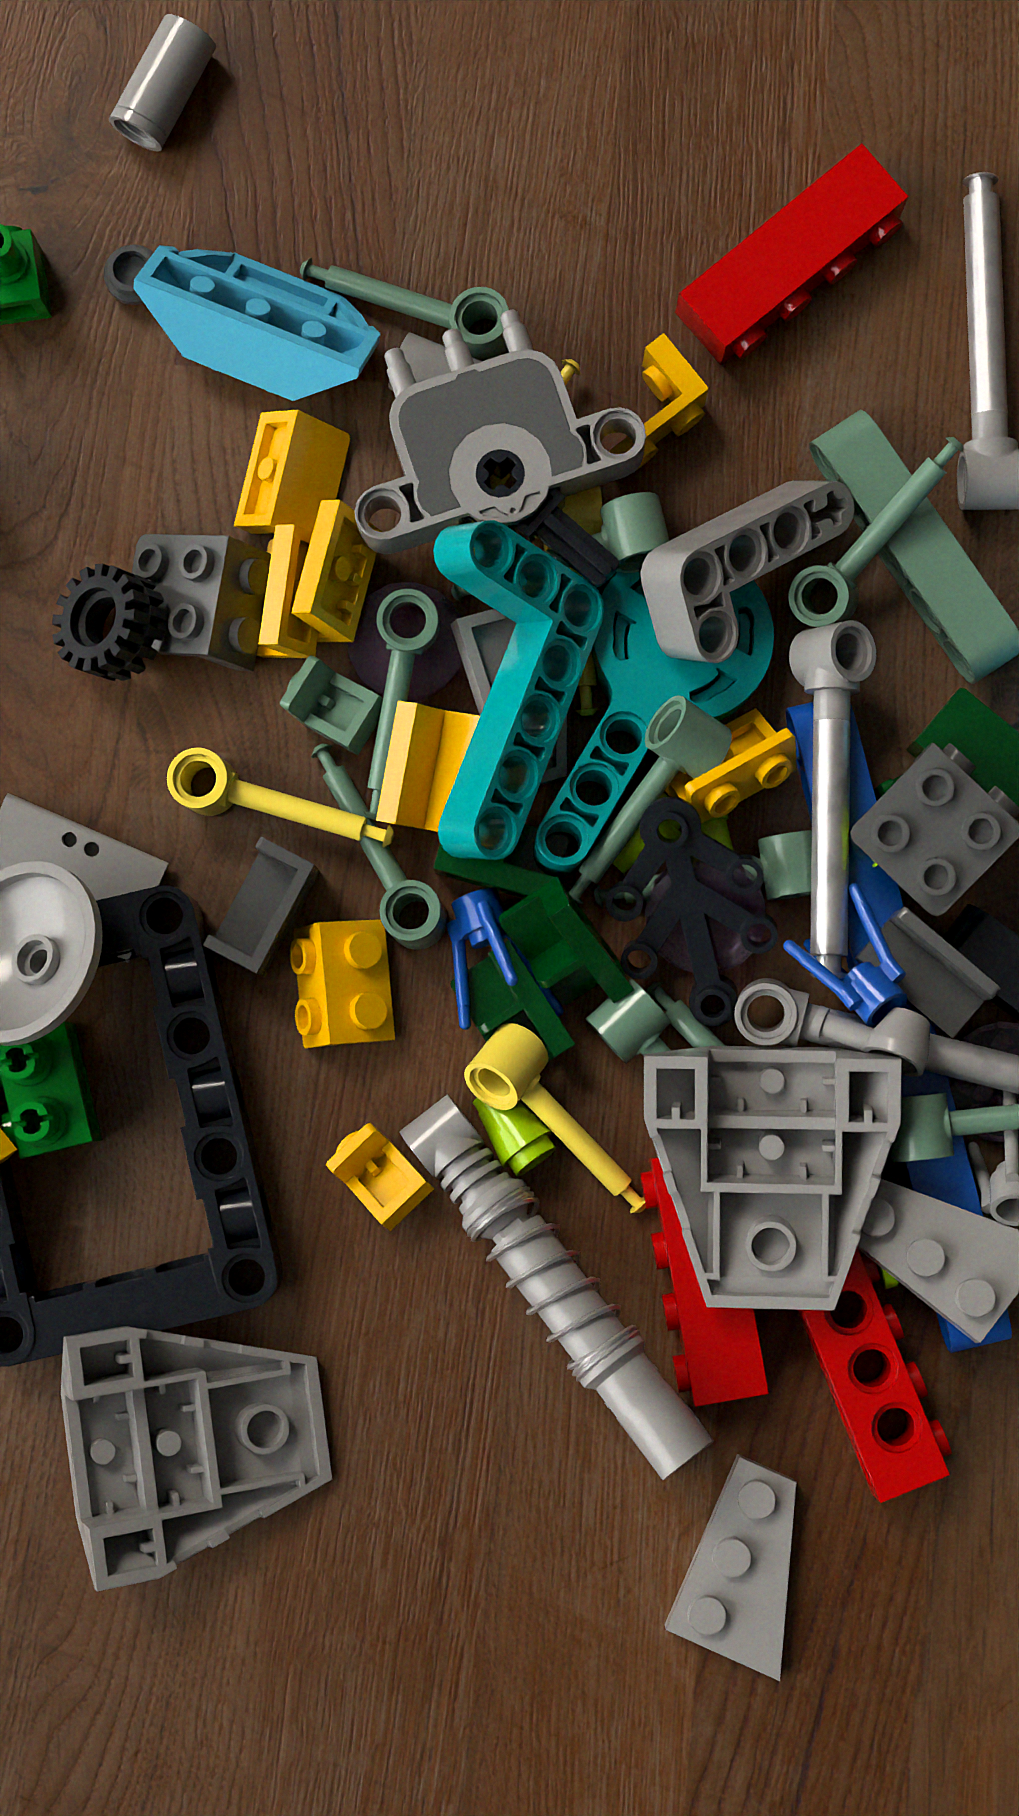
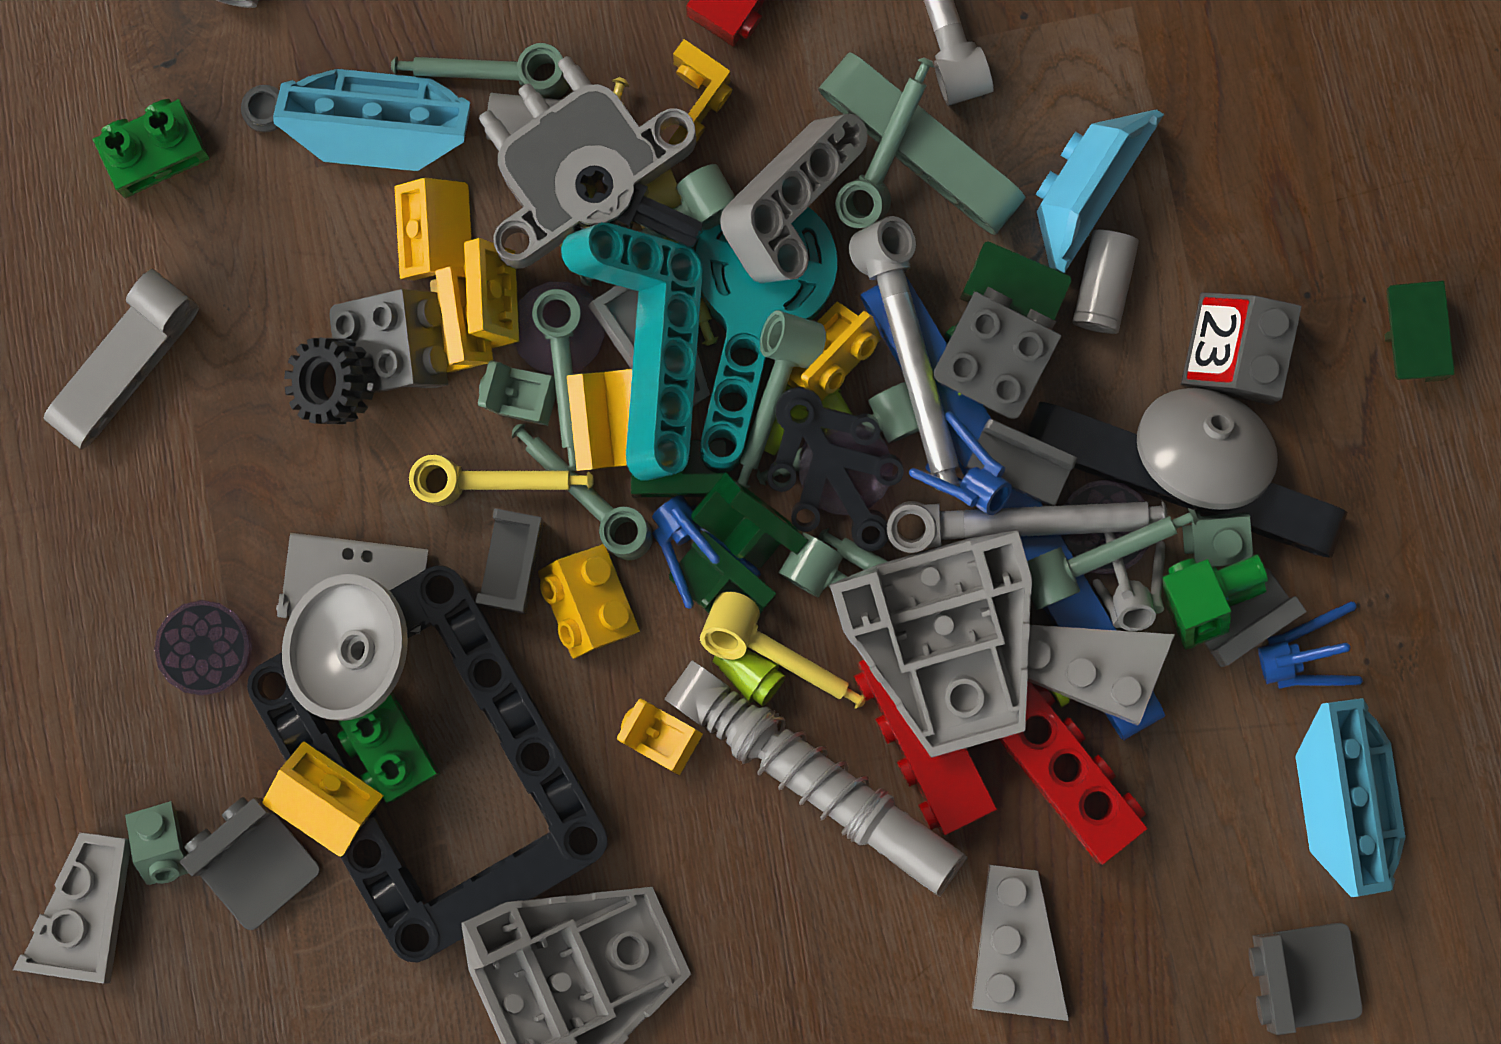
camera: 25 degrees left, 0 degrees up
(898, 1035) = (1012, 514): light grey bar -> none

